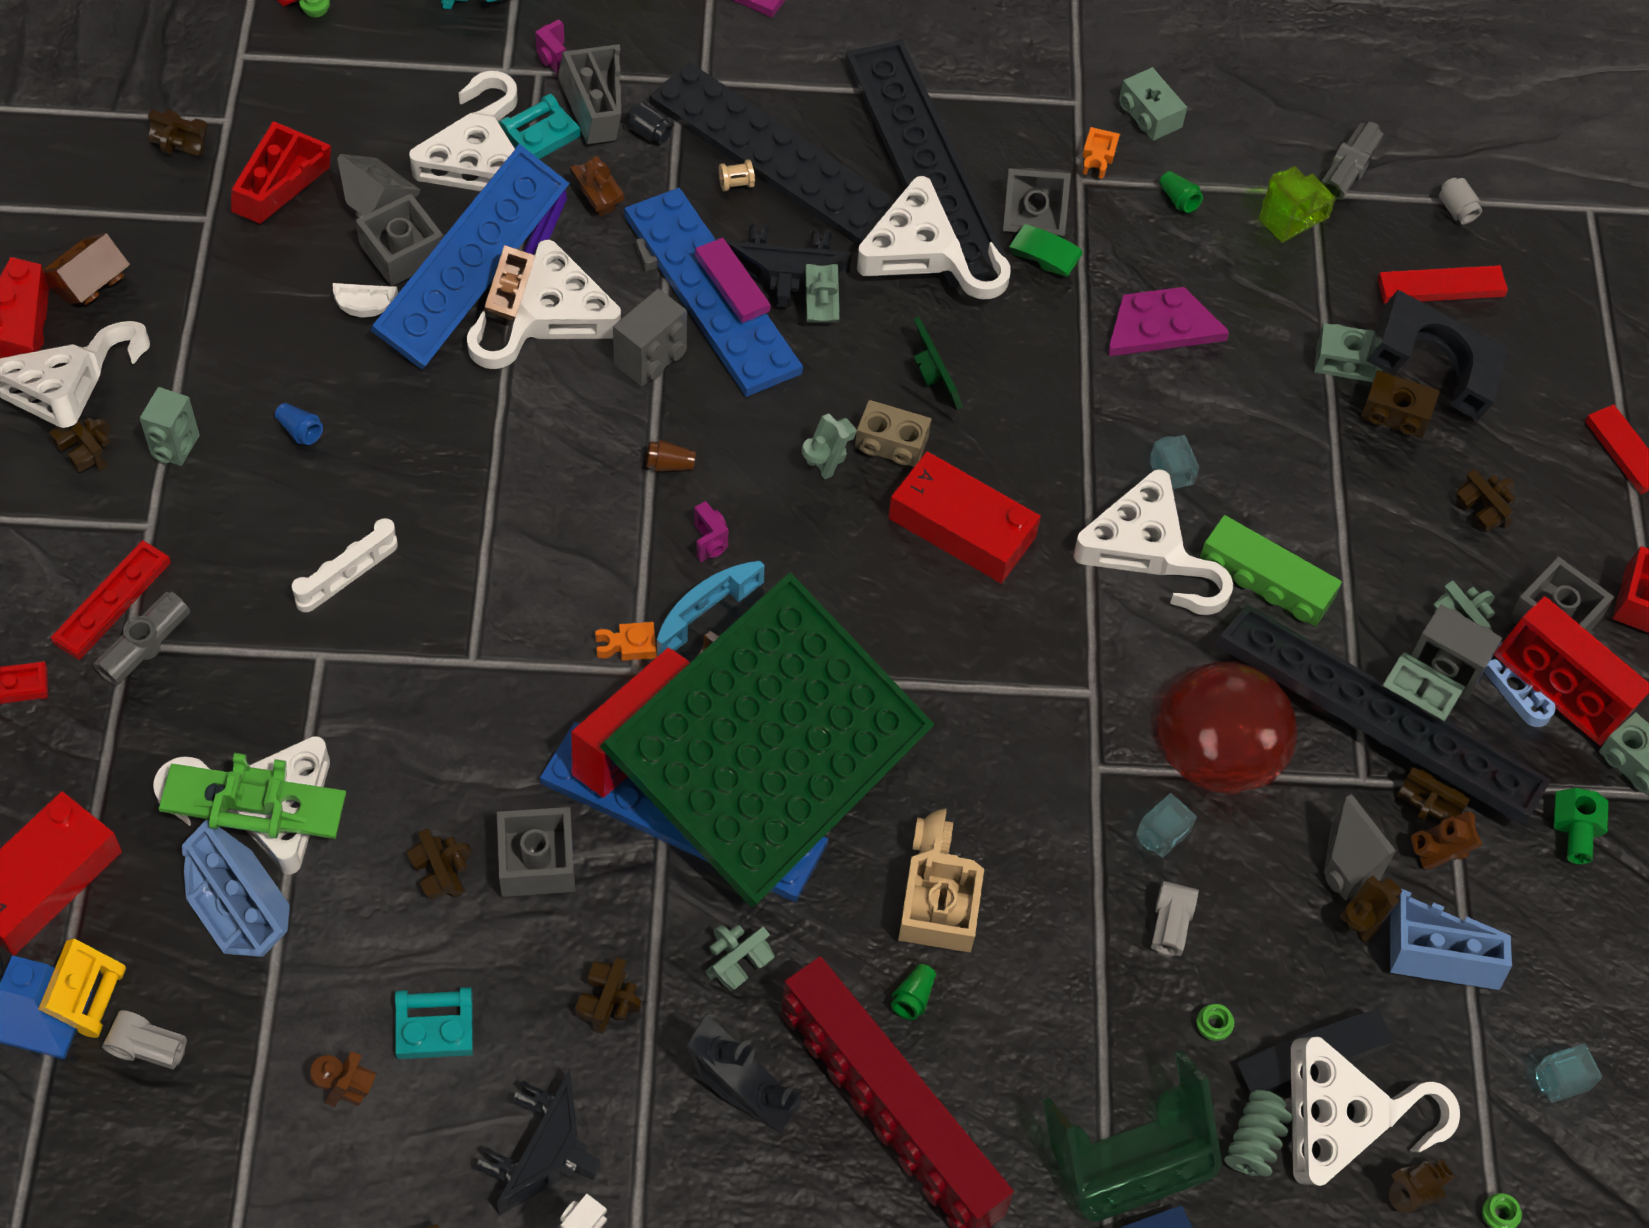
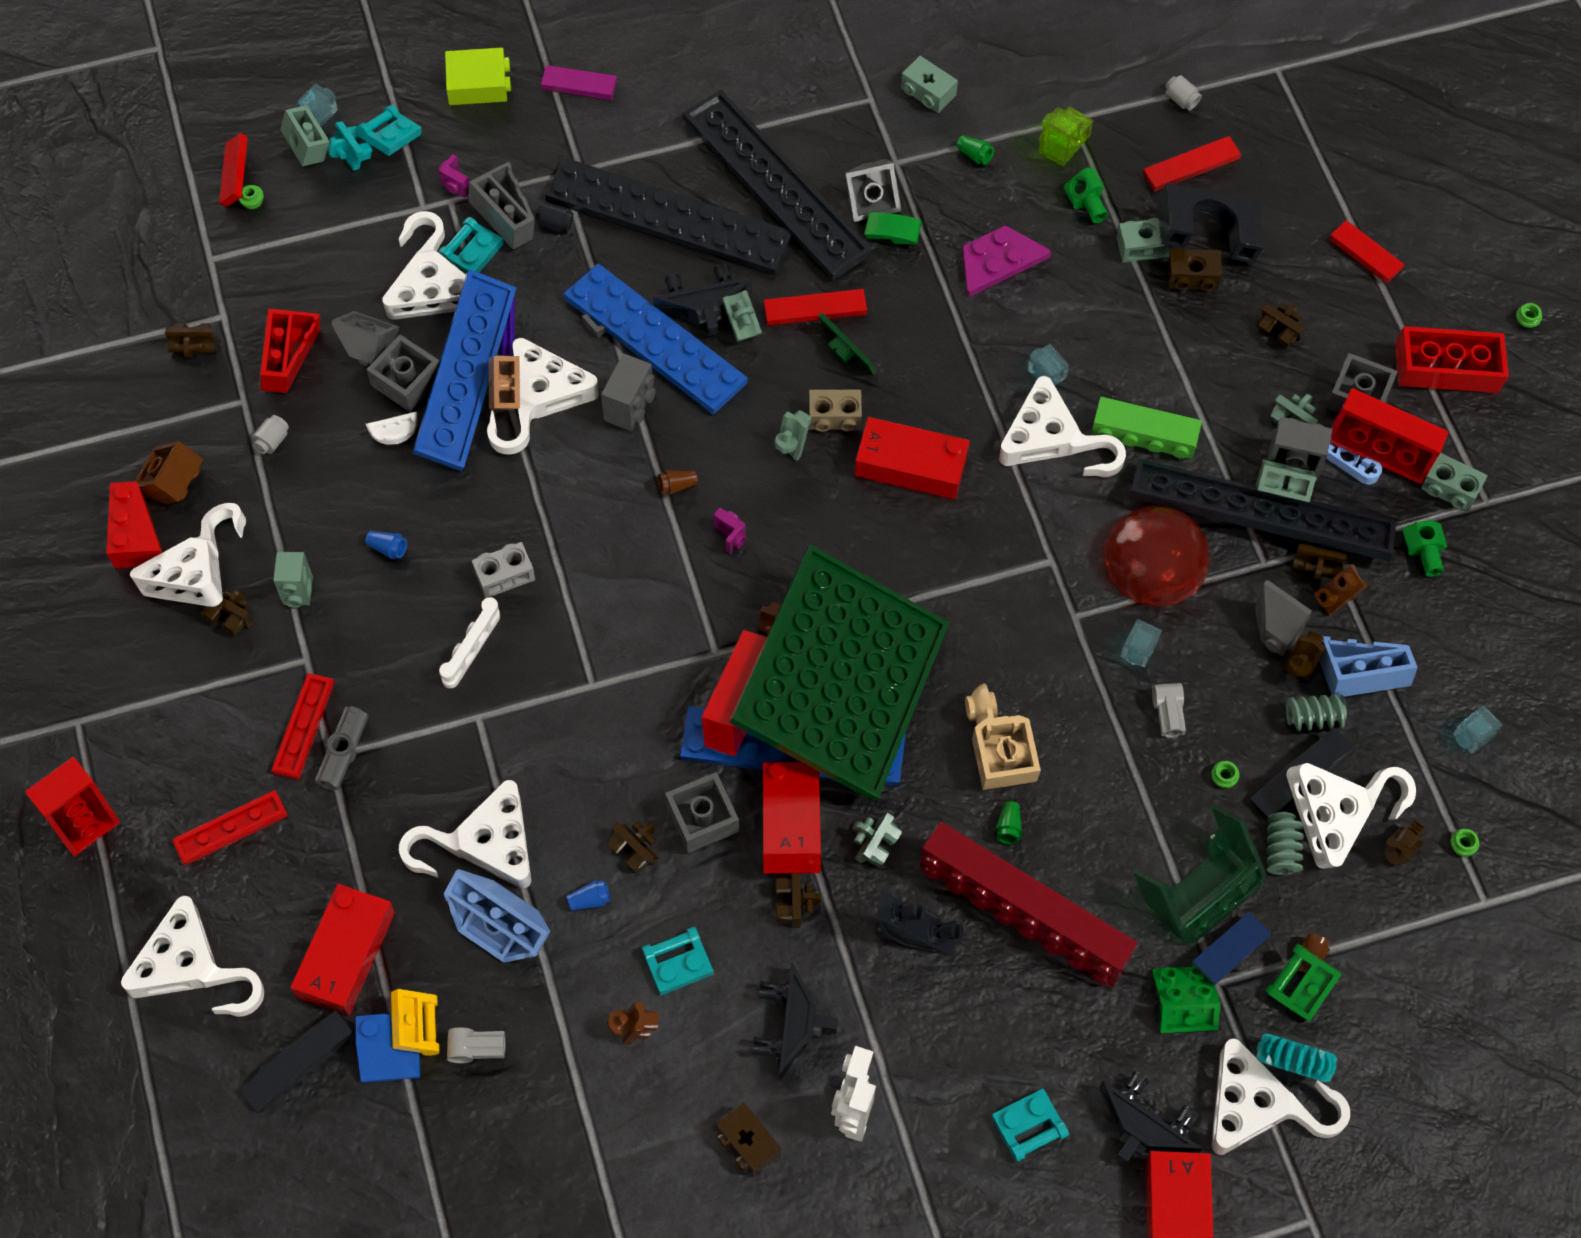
camera: 15 degrees left, 5 degrees up
(218, 262) = (270, 434): none -> light grey brick
(255, 790) = (450, 848): bright green piece -> none
(360, 908) = (589, 896): none -> blue cone
(421, 501) = (506, 575): none -> light grey brick
(598, 185) = (536, 280): reddish brown hips -> none
(634, 641) = (705, 630): orange plate -> none
(639, 894) = (791, 818): none -> red brick
(732, 280) = (670, 326): magenta tile -> none
(736, 581) = (763, 562): dark azure slope -> none
(747, 177) = (638, 240): tan bush -> none
(902, 308) = (808, 307): none -> red tile
(924, 242) = (803, 236): white piece -> none
(1099, 150) = (903, 134): orange plate -> none
(1296, 277) = (1088, 198): none -> green piece
(1352, 159) = (1093, 84): dark grey piece -> none
(1362, 982) = (1316, 711): none -> sand green piece

